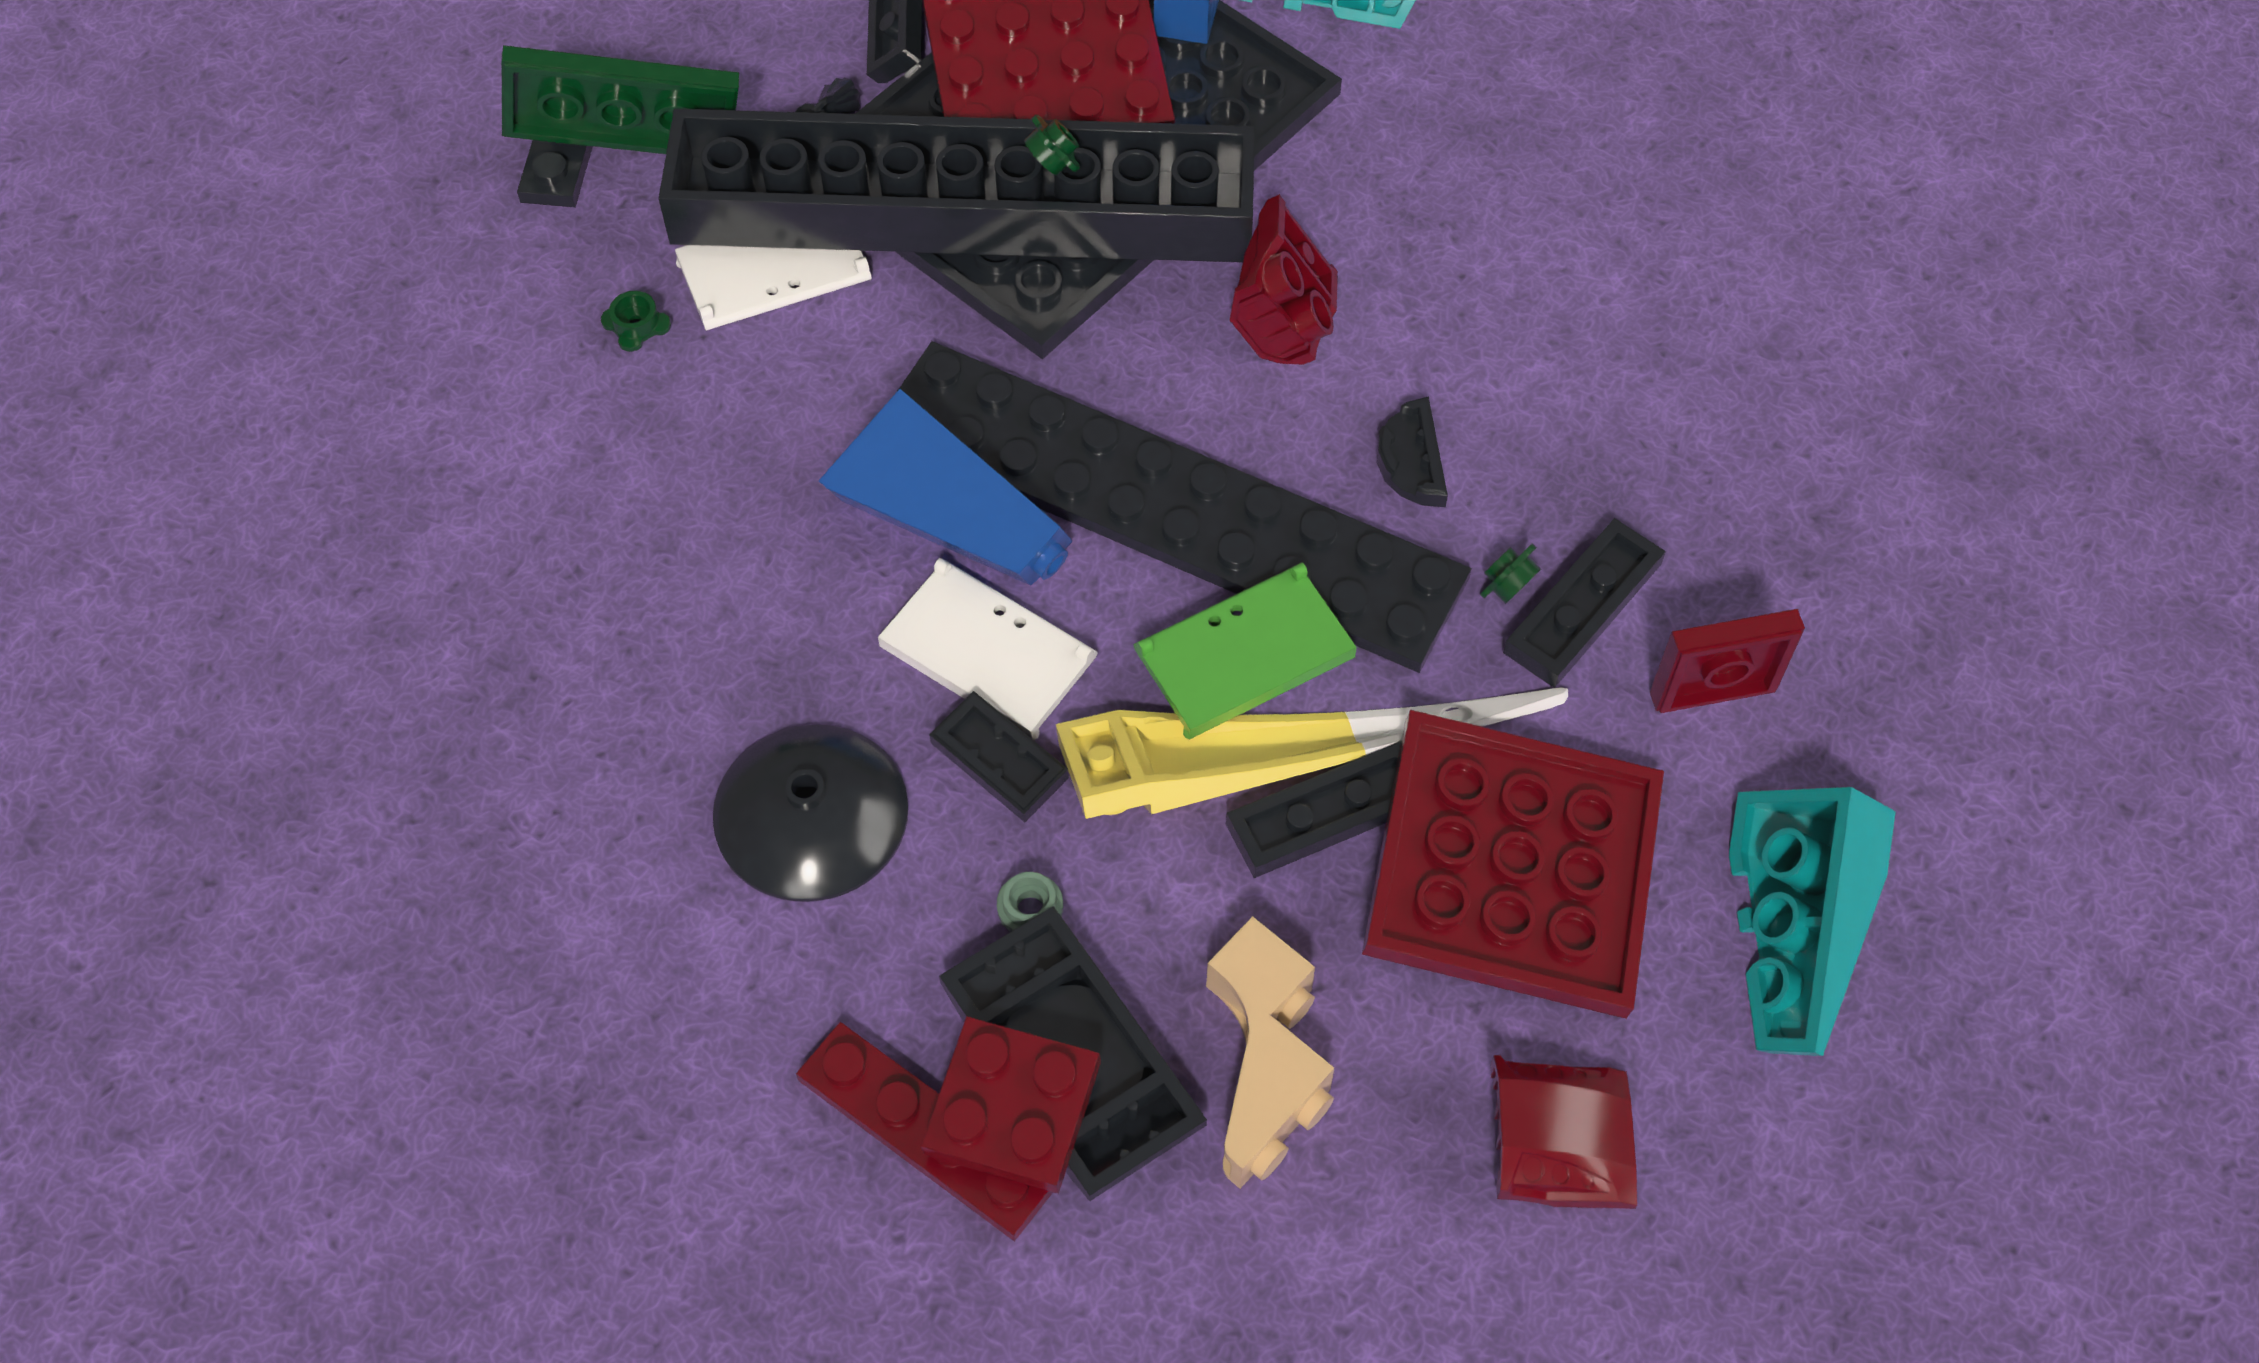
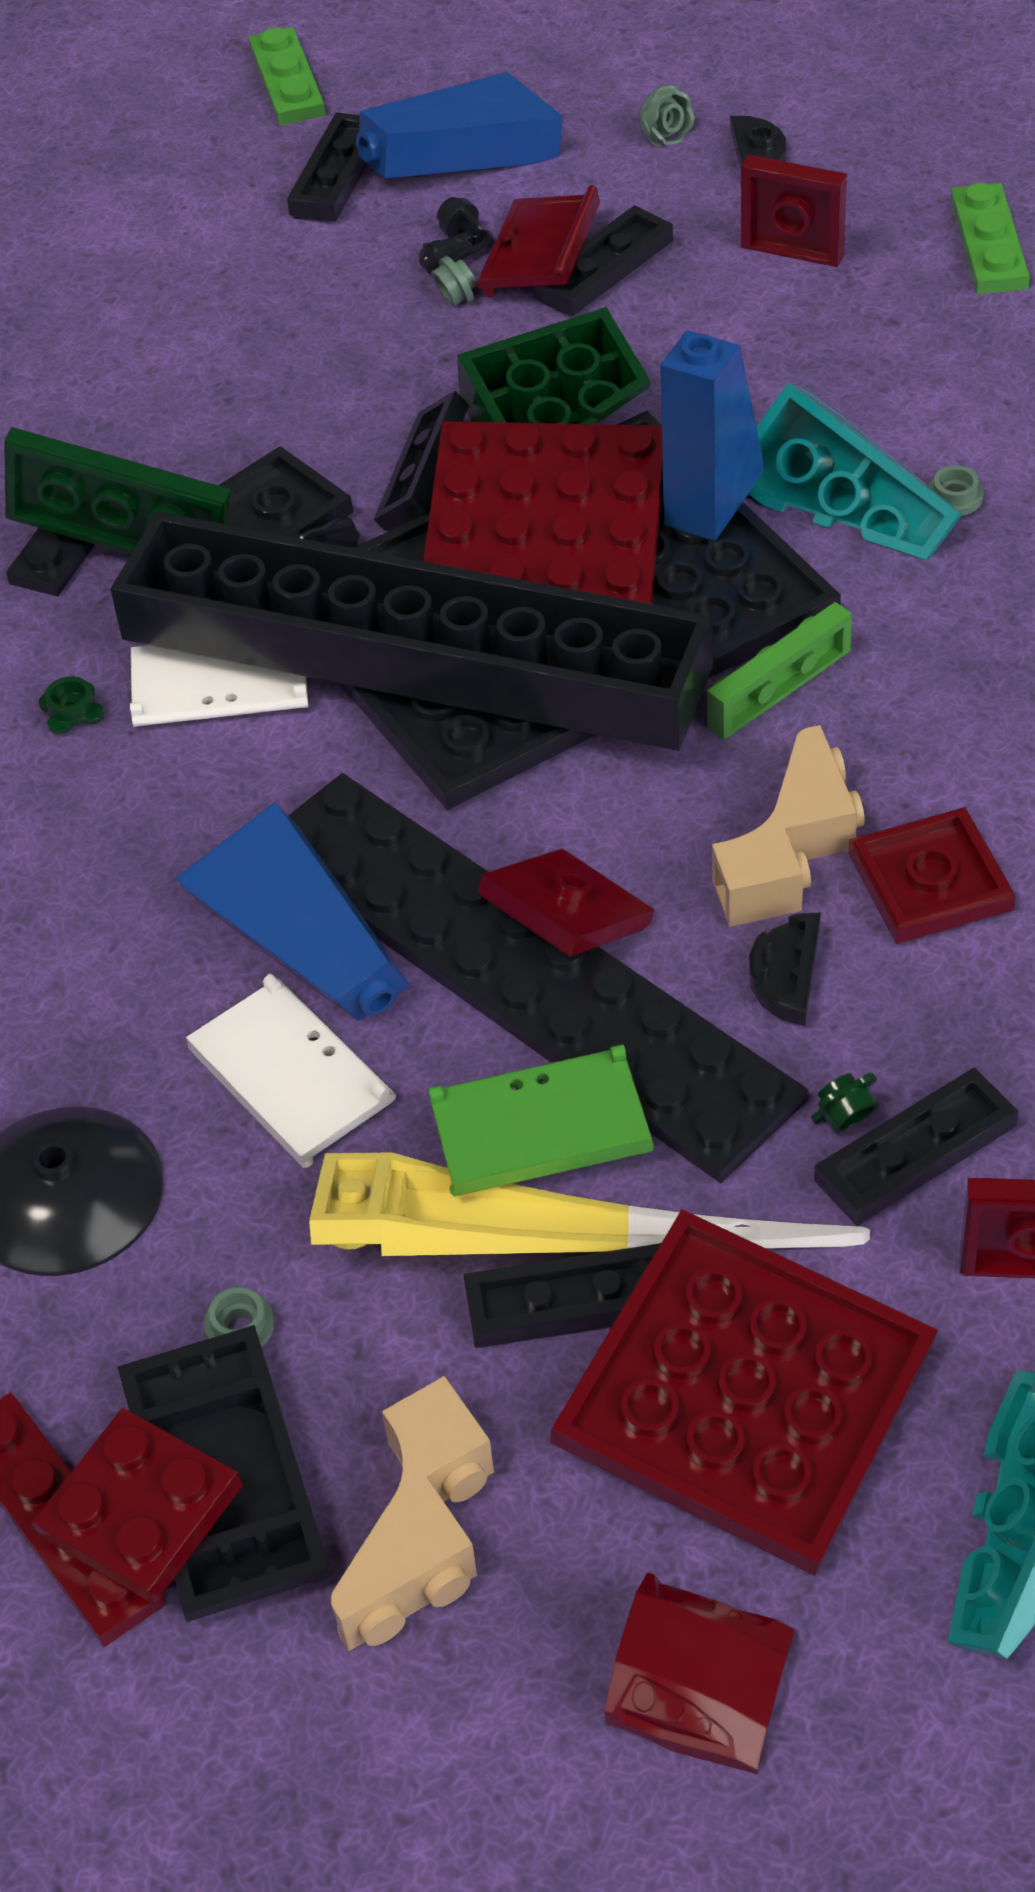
camera: 20 degrees right, 10 degrees down
(774, 66) = (284, 496): none -> black plate
(999, 756) = (259, 1173): black plate -> none
(1052, 145) = (495, 598): dark green plate -> none
(1193, 431) = (565, 901): none -> dark red plate
(1284, 290) = (703, 780): dark red slope -> none
(1313, 159) = (778, 670): none -> bright green plate
(1391, 304) = (813, 818): none -> tan arch
(1511, 340) = (931, 875): none -> dark red plate

